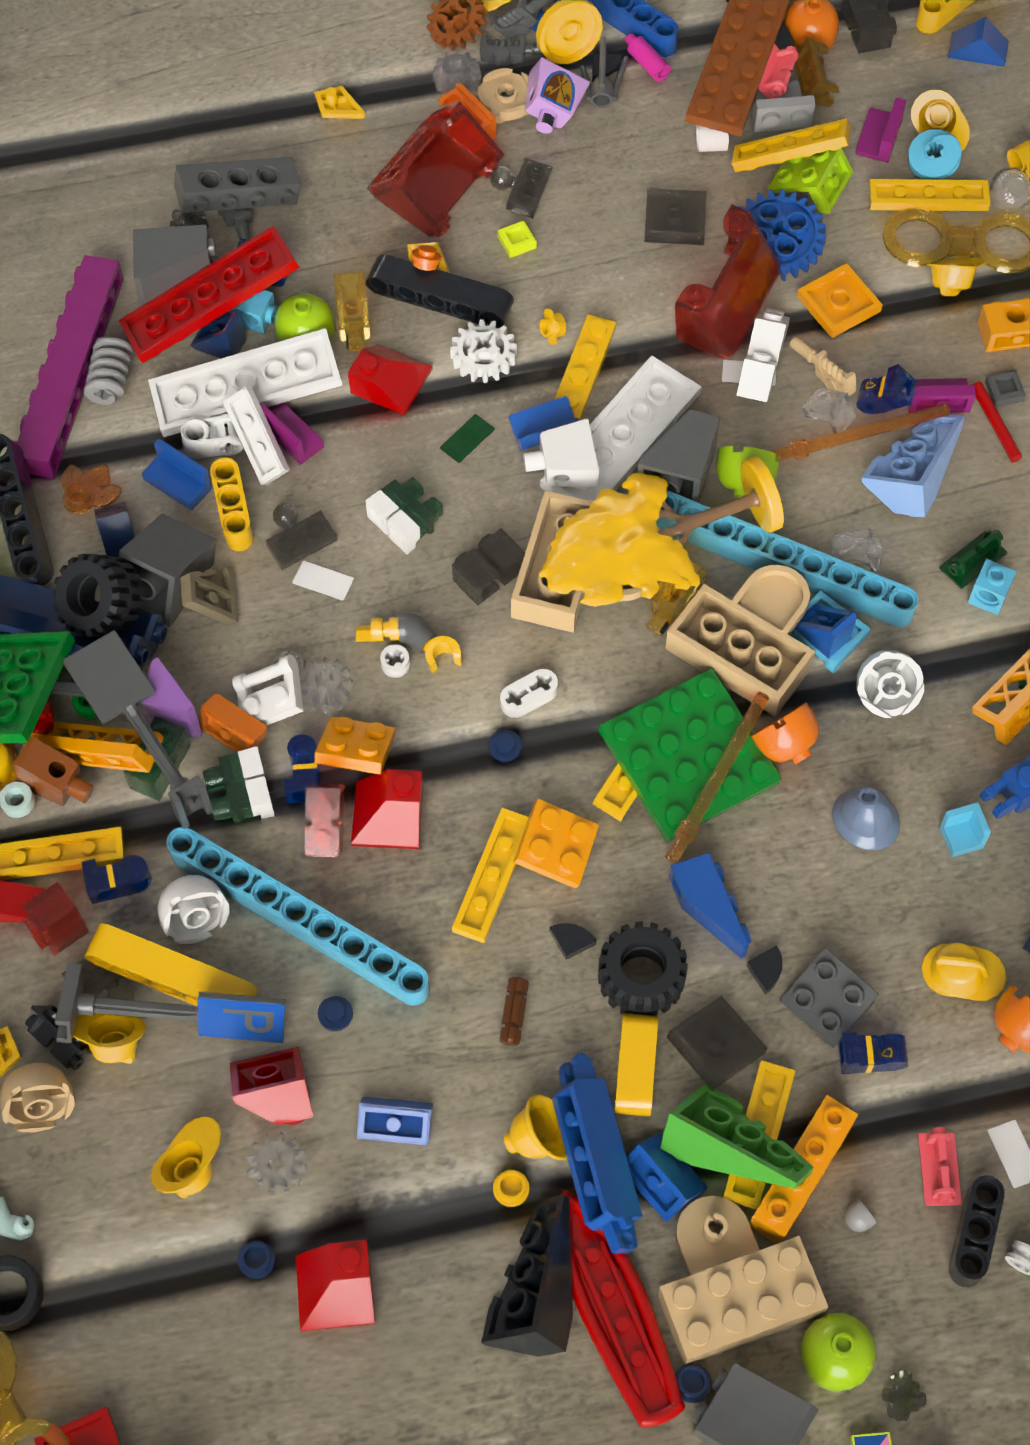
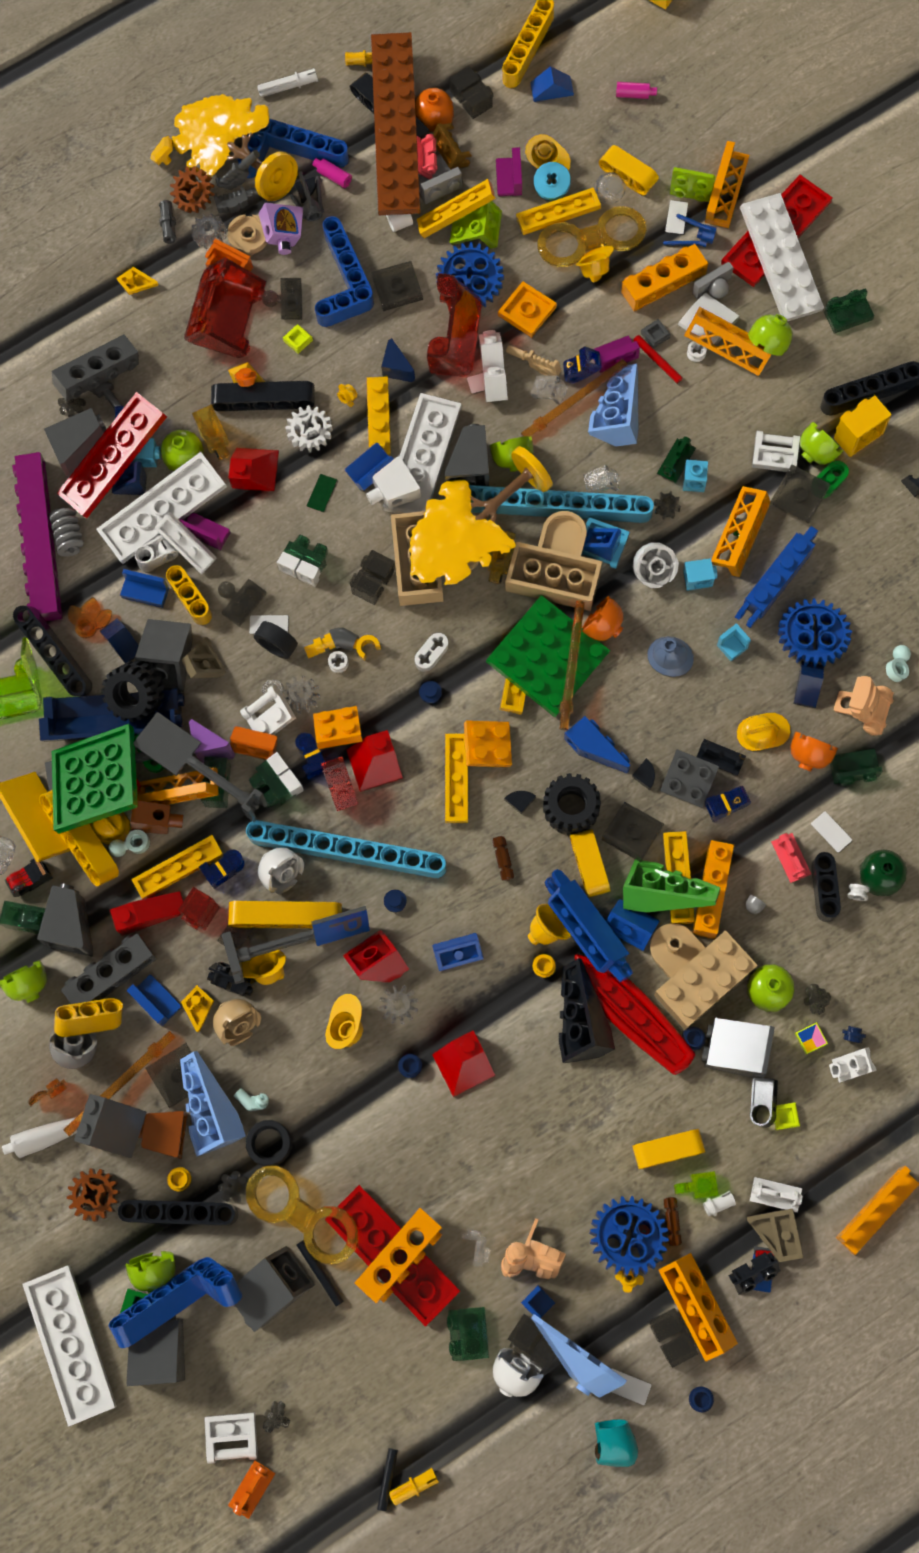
camera: 15 degrees left, 10 degrees up
(320, 599) = (275, 640): none -> black tyre
(409, 48) = (167, 221): none -> dark grey pin
(613, 214) = (349, 273): none -> blue beam
(633, 311) = (395, 364): none -> dark blue slope
(893, 989) = (723, 757): none -> black hinge
(937, 612) = (667, 499): none -> clear smoke gear
(949, 720) = (699, 574): none -> medium azure brick

